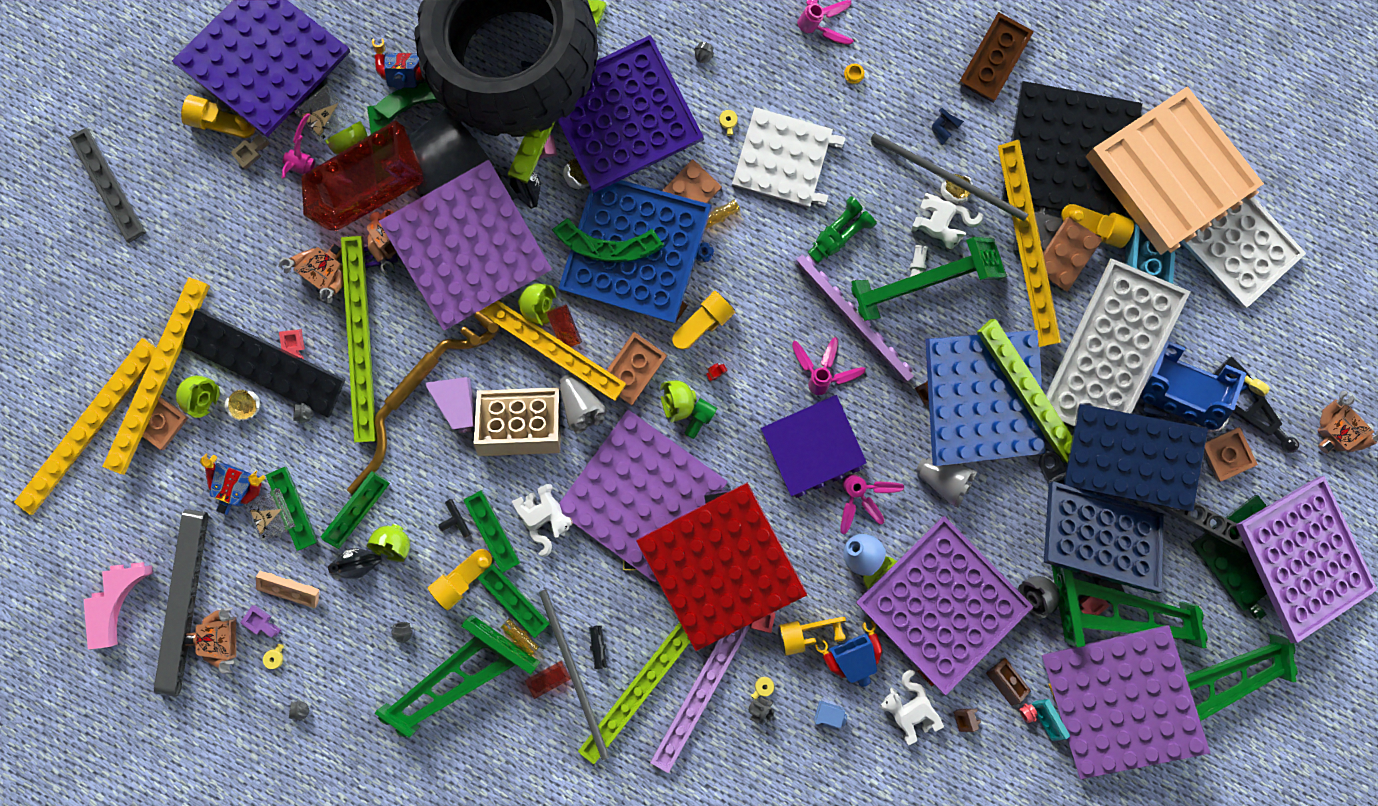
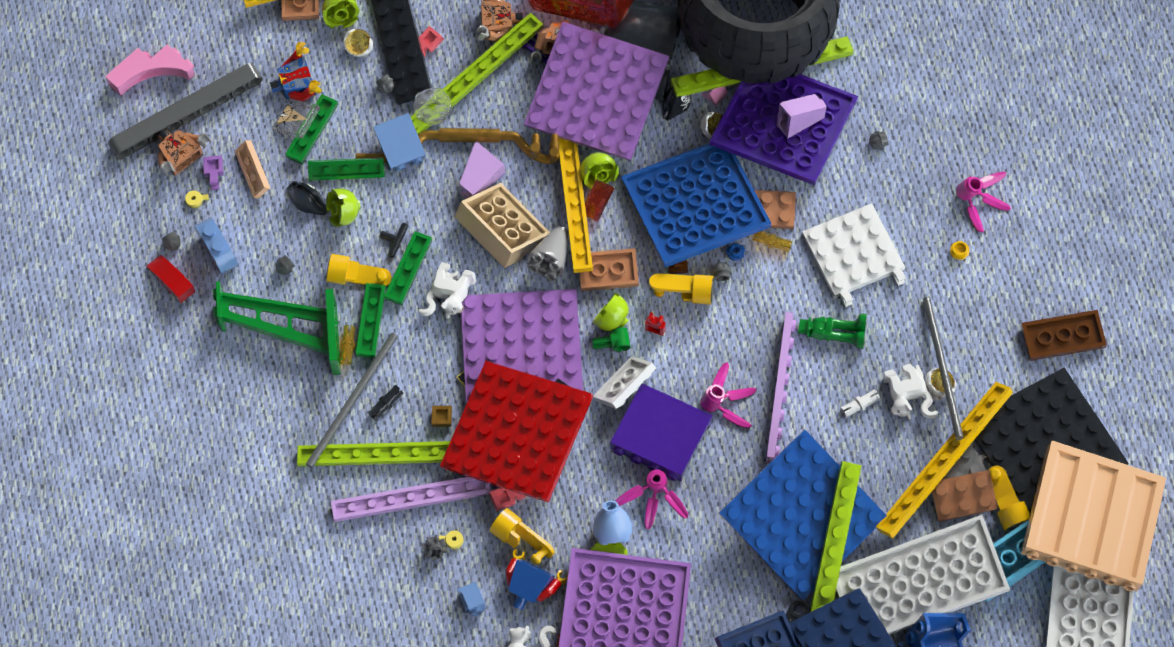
camera: 55 degrees right, 20 degrees down
(332, 738) = (171, 278): none -> red slope
(335, 678) = (216, 245): none -> medium blue brick
(347, 394) = (427, 97): none -> clear plate
(370, 447) = (399, 142): none -> medium blue panel
(548, 679) = (332, 388): clear red plate -> none
(606, 250) = (677, 185): green tile -> none
(634, 96) = (799, 114): none -> lavender slope
(649, 611) = (441, 416): none -> pearl gold plate
(712, 278) = (722, 271): none -> dark grey plate
(728, 125) = (843, 198): light yellow piece -> none
(747, 440) = (624, 382): none -> white plate
(937, 126) = (979, 335): dark blue piece -> none
(947, 480) = (720, 544): light grey cone -> none
(983, 259) = (895, 425): green piece -> none

